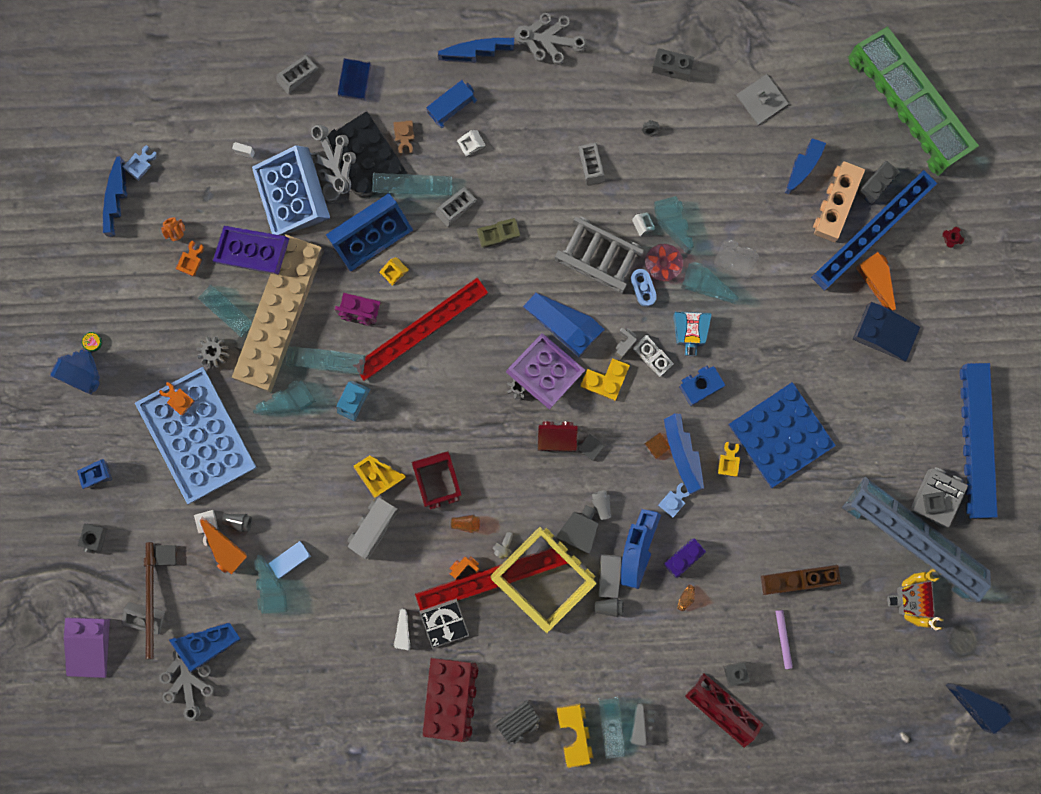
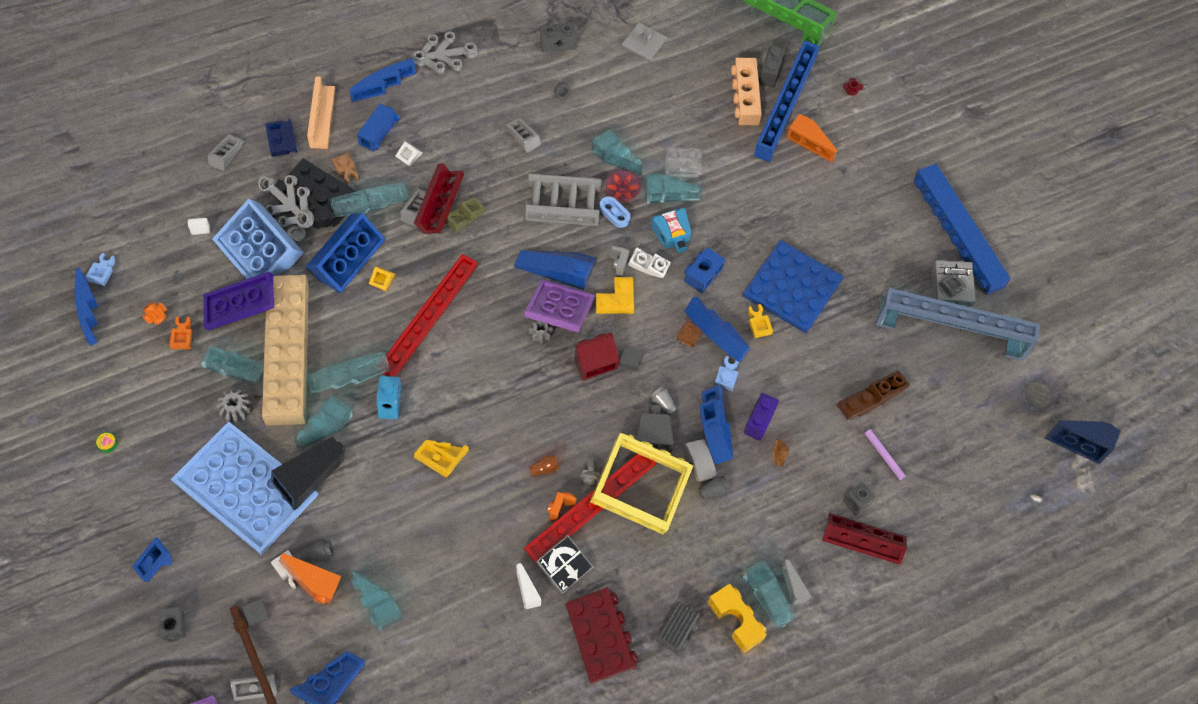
camera: 30 degrees left, 20 degrees down
(78, 371) = (101, 467): blue wedge -> none
(178, 400) = (215, 459): orange plate -> none
(253, 446) = (307, 471): none -> black slope
(289, 560) = (386, 566): light blue slope -> none
(358, 308) = (362, 320): magenta bracket -> none
(372, 528) = (456, 502): light grey slope -> none
(402, 66) = (321, 115): none -> light nougat fence
(430, 461) = (489, 421): dark red window -> none
(475, 207) = (434, 199): none -> dark red fence
(643, 223) = (589, 164): white slope -> none
(804, 164) = (704, 73): blue slope -> none
(886, 331) = (837, 173): dark blue slope -> none
(916, 600) = (981, 373): torso -> none

